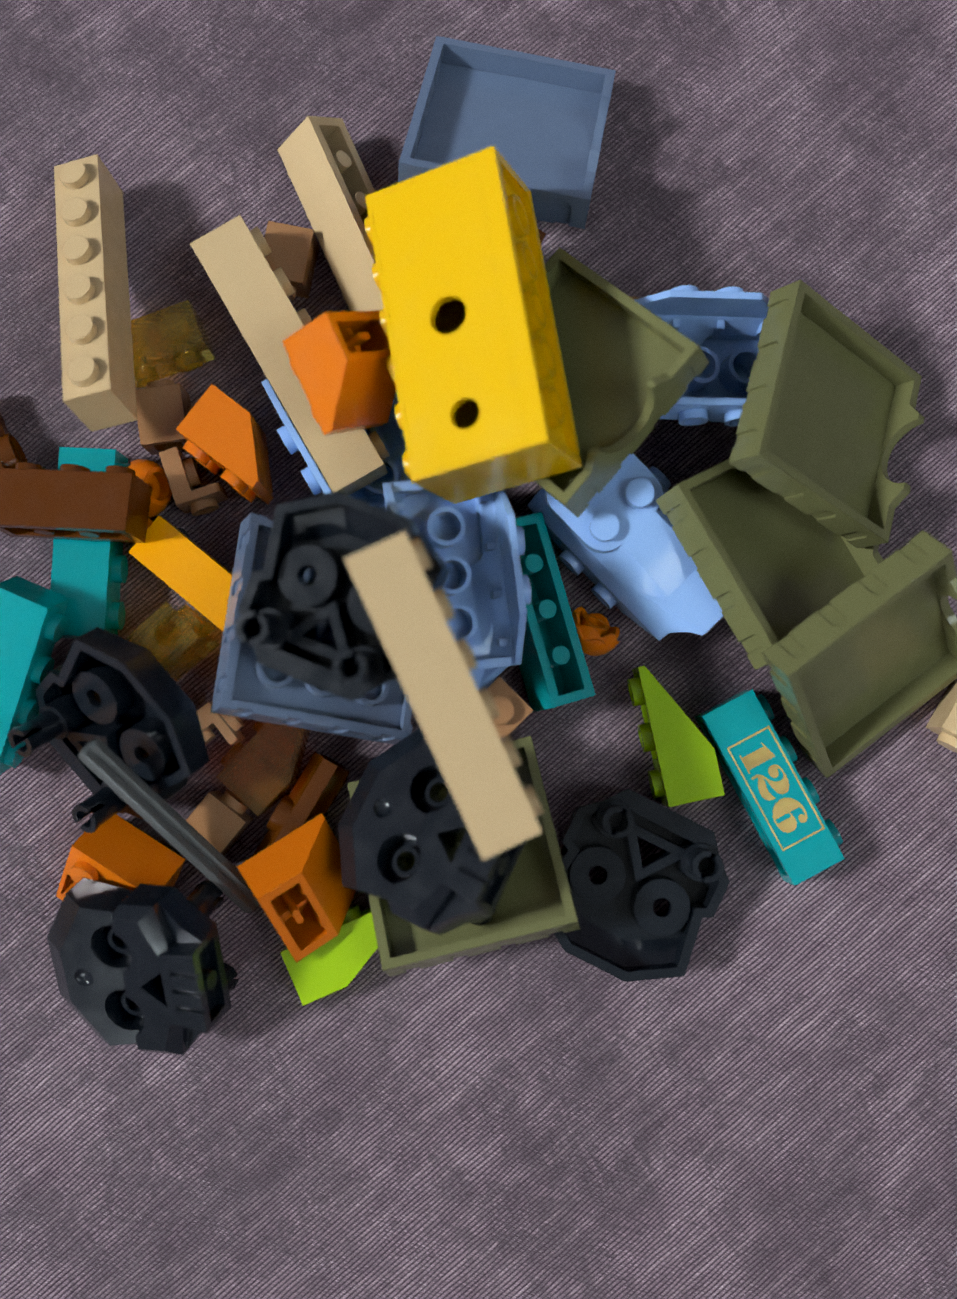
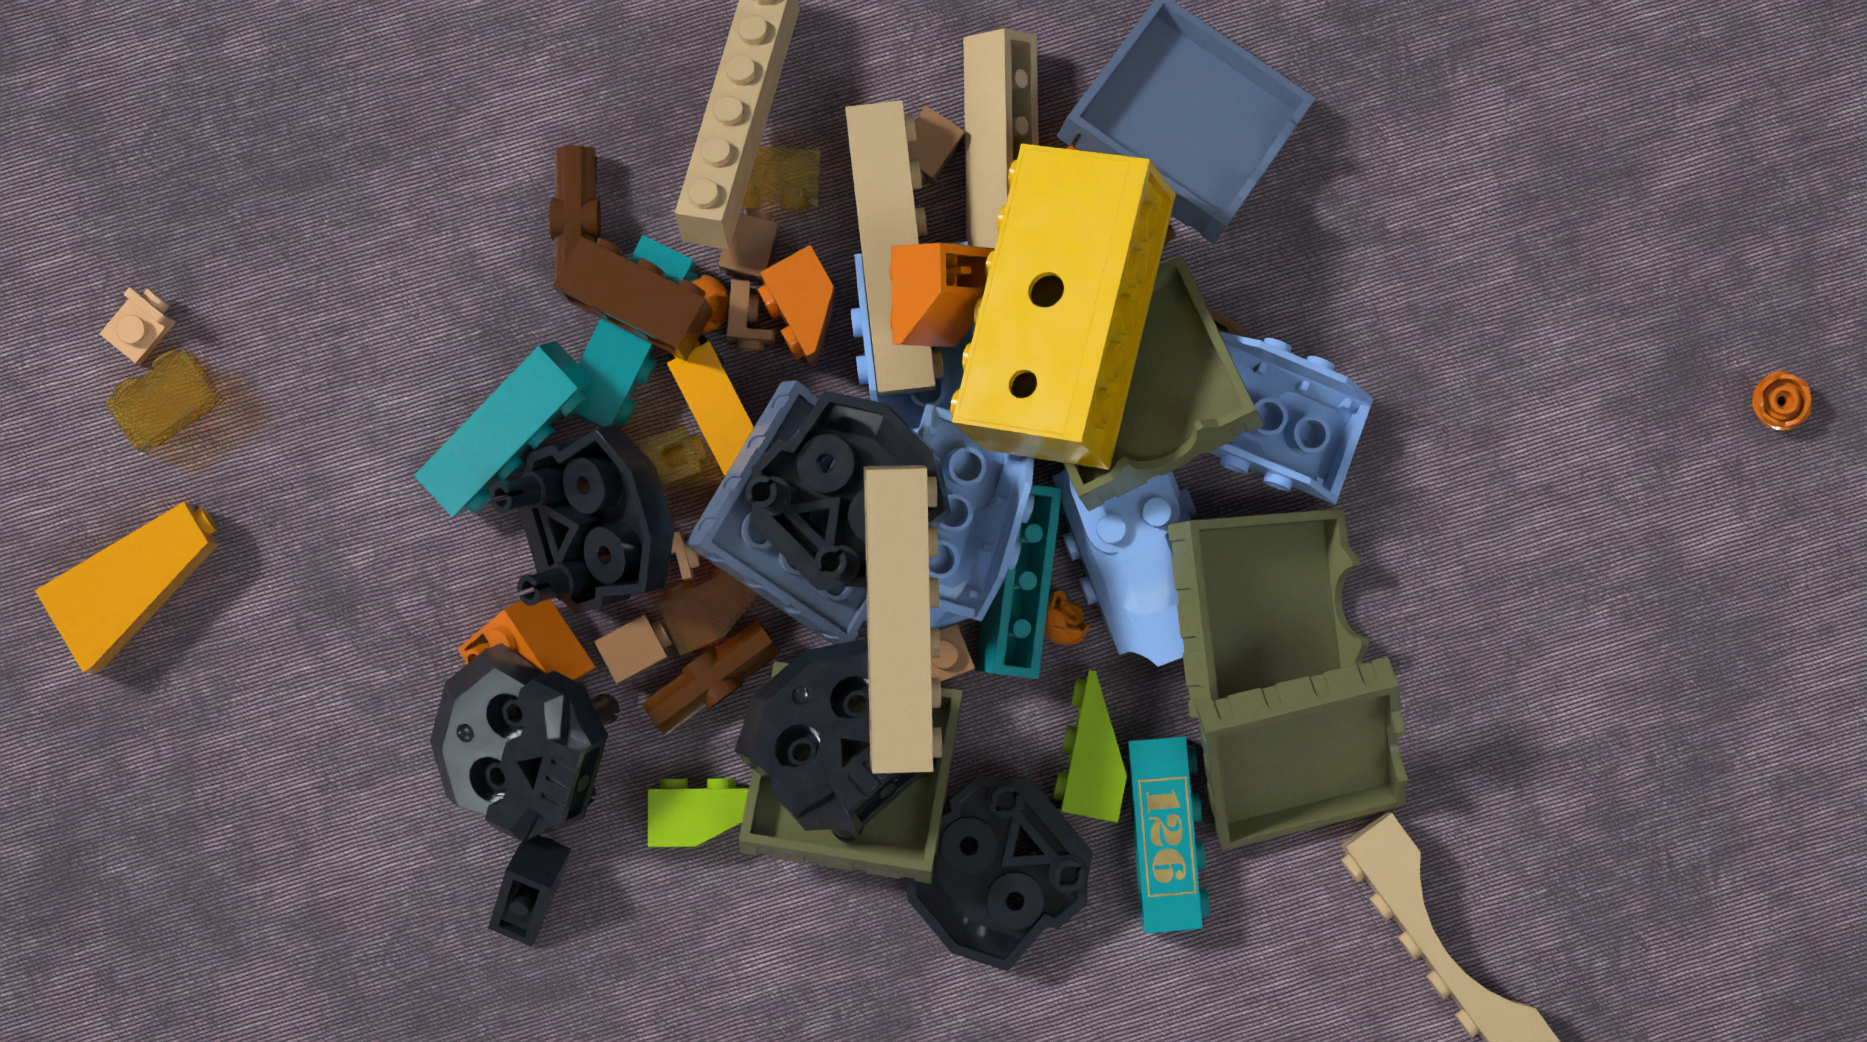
camera: 20 degrees right, 0 degrees up
(168, 823) = (603, 631): dark grey axle -> none
(211, 1088) = (529, 888): none -> black slope
(301, 886) = (694, 737): orange slope -> none
(826, 416) = (1360, 516): olive piece -> none

